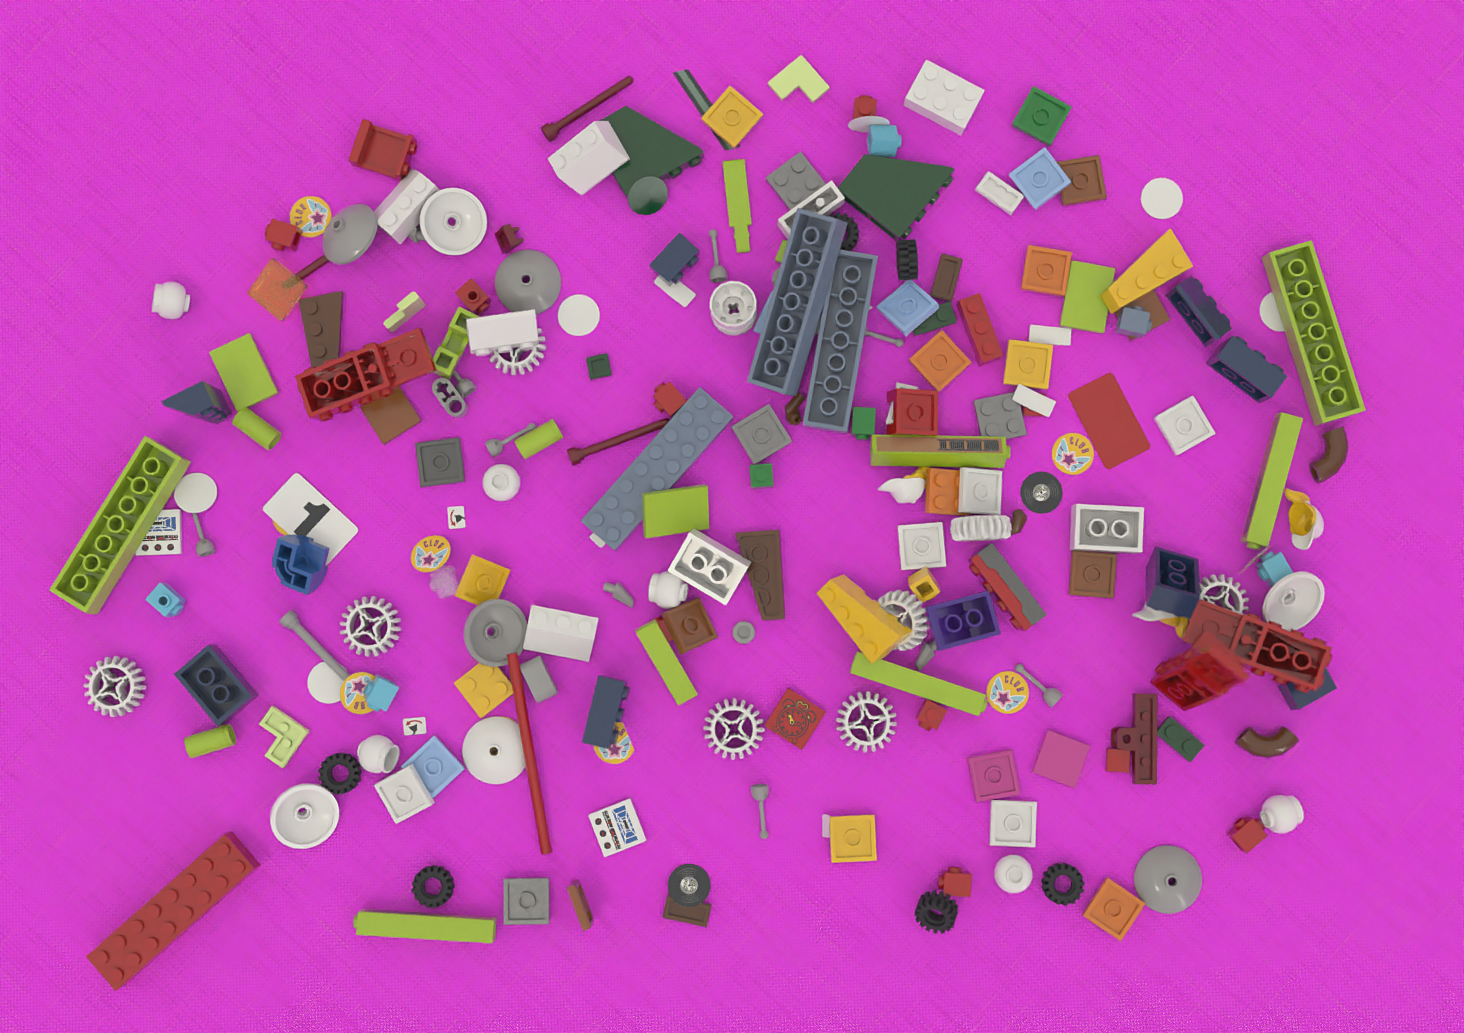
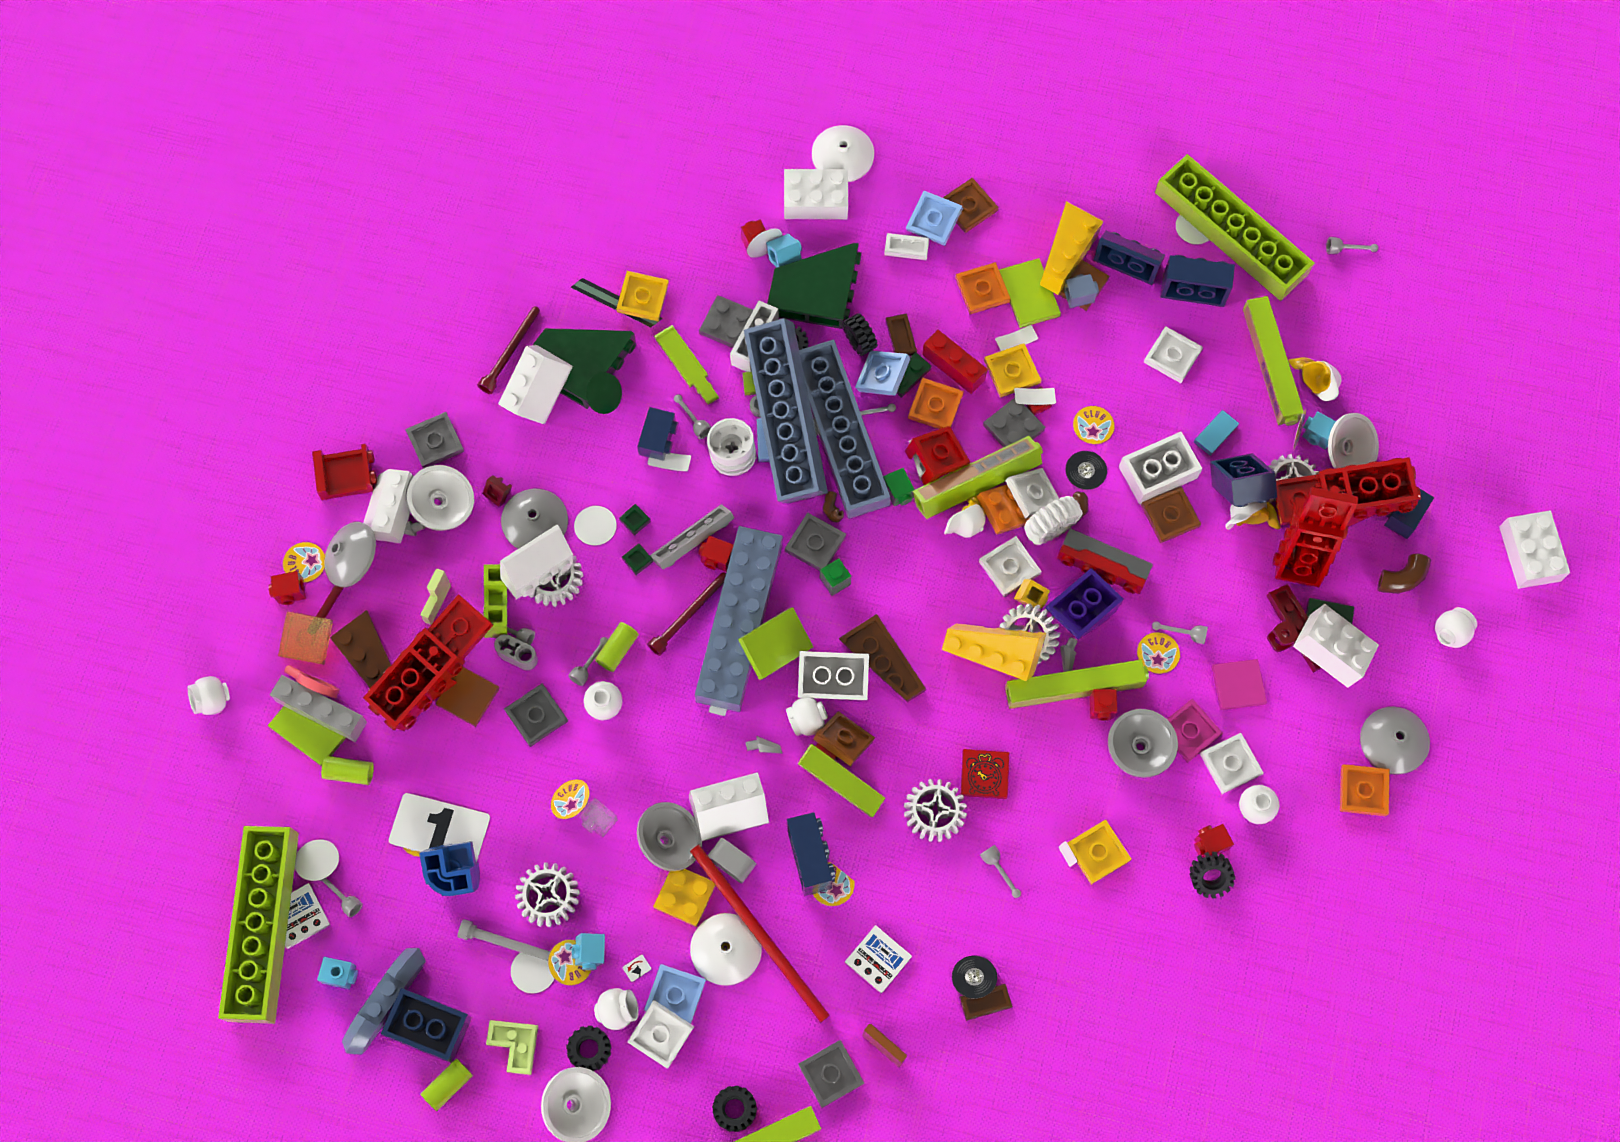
camera: 30 degrees left, 15 degrees down
(109, 679) = (332, 1072): white gear -> none
(192, 643) = (379, 1004): none -> sand blue brick
(200, 402) = (282, 771): dark blue slope -> none
(256, 362) = (318, 708): none -> light grey brick
(263, 337) = (312, 682): none -> coral piece
(456, 517) = (576, 757): white sticker -> none
(473, 297) = (490, 552): red brick -> none
(476, 161) = (434, 440): none -> flat silver plate
(481, 581) = (631, 796): yellow plate -> none
(615, 328) = (634, 519): none -> dark green tile
(656, 372) = (692, 536): none -> light grey plate
(743, 632) = (895, 722): light grey tile -> none
(800, 75) = (682, 236): yellowish green tile -> none
(871, 741) = (1056, 747): white gear -> none
(959, 773) = (1151, 731): none -> light grey dish
(997, 80) = (855, 157): none -> white dish
(1041, 116) = (906, 170): green plate -> none
(1076, 883) = (1318, 784): black tyre -> none
(1109, 421) = (1108, 383): red sticker -> none
(1117, 760) = (1288, 660): red tile -> none
(1161, 198) = (1044, 187): white sticker -> none
(1164, 774) = (1336, 645): none -> white brick
(1179, 520) = (1216, 432): none -> medium azure tile
(1247, 833) = (1437, 662): red brick -> none
(1334, 455) = (1311, 316): reddish brown cylinder -> none
(1398, 780) = (1534, 549): none -> white brick
(1399, 399) = (1335, 245): none -> light grey hinge

